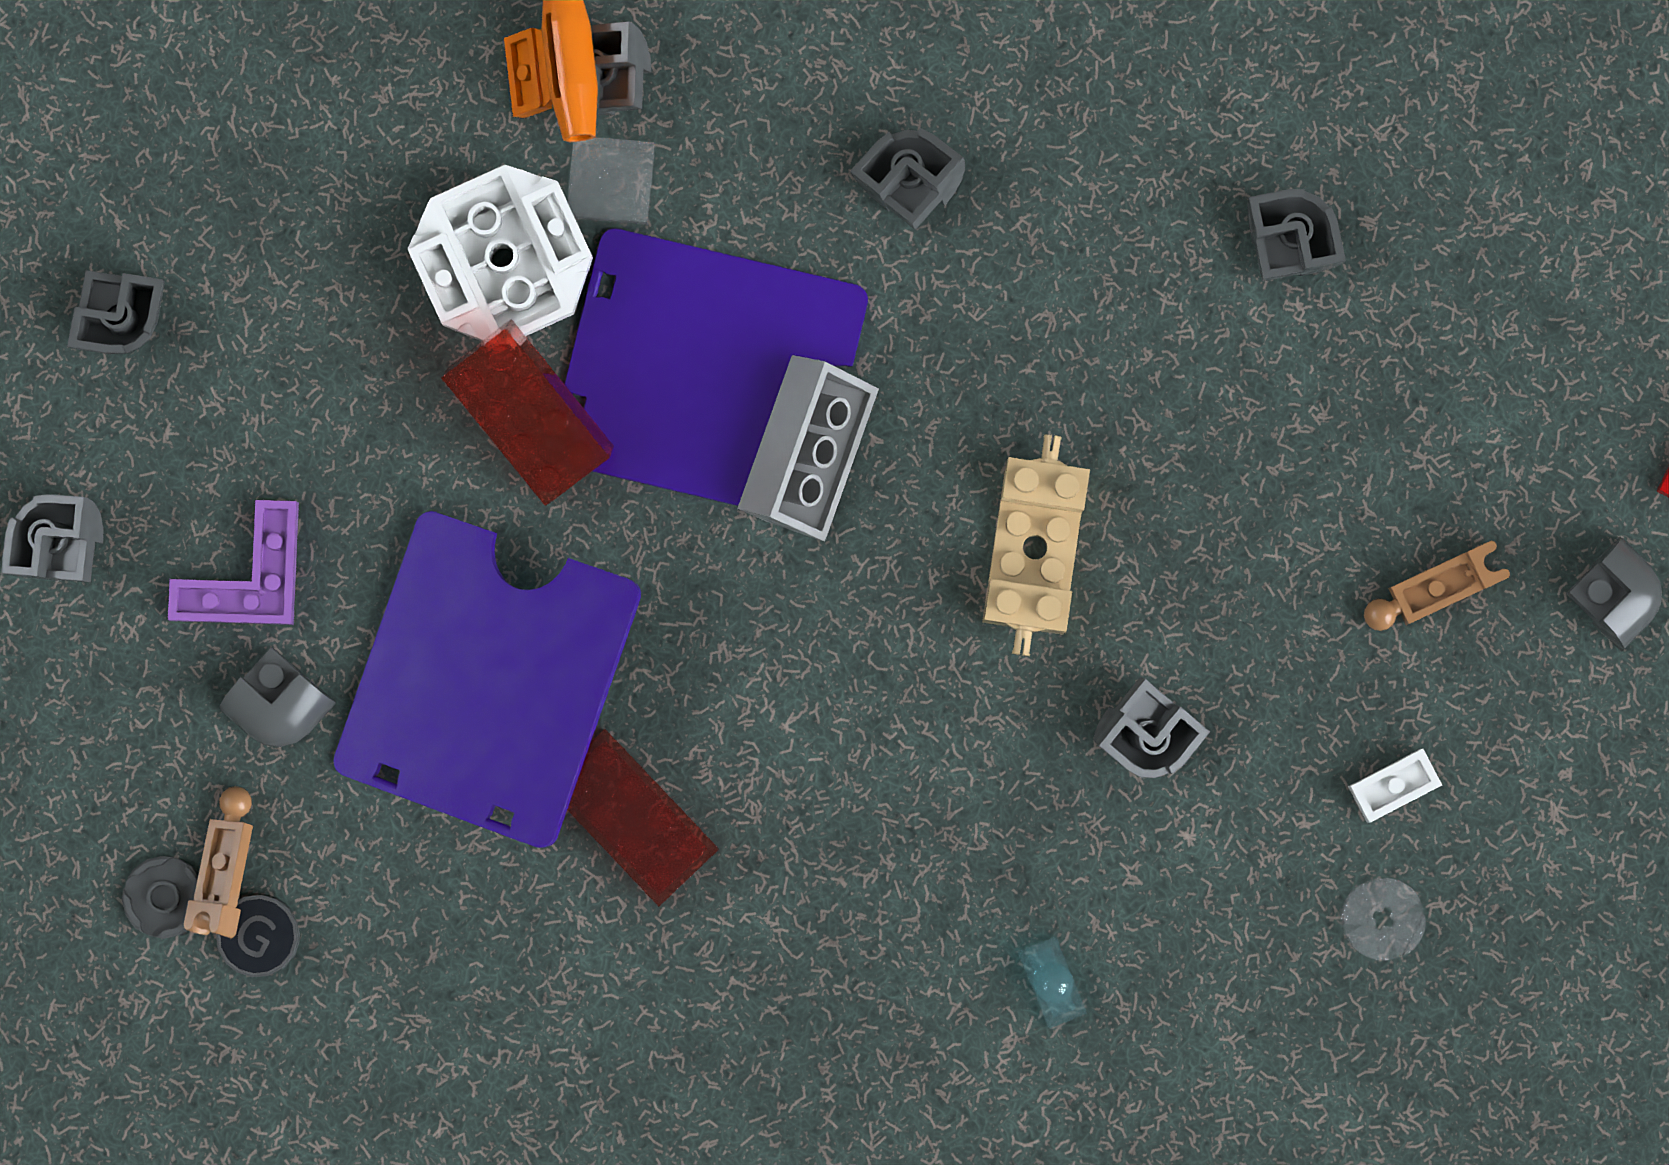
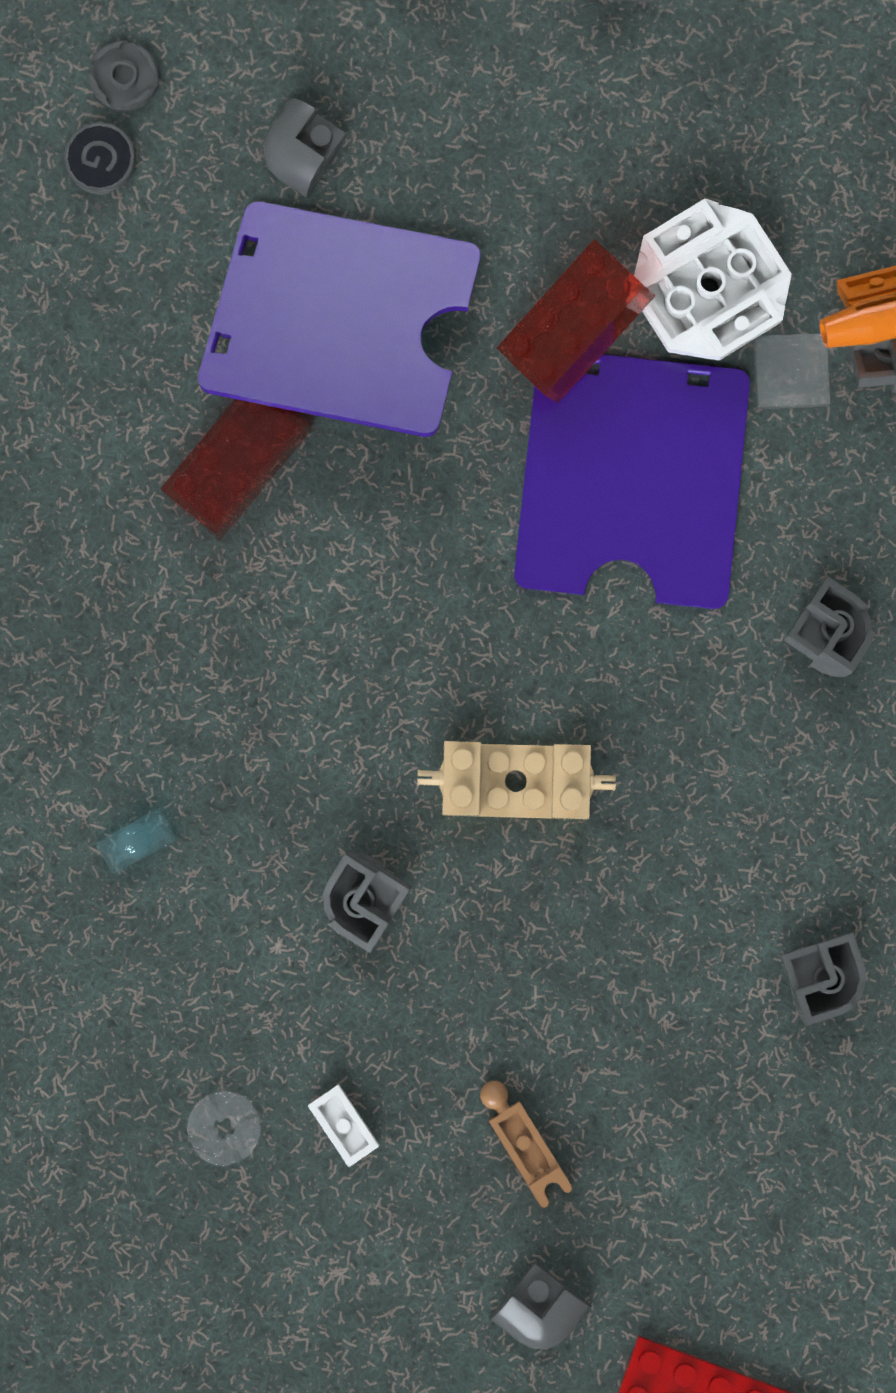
camera: 90 degrees right, 0 degrees up
(221, 868) = (151, 118): medium nougat plate -> none
(272, 589) = (400, 129): medium lavender plate -> none
(808, 447) = (577, 570): light grey slope -> none

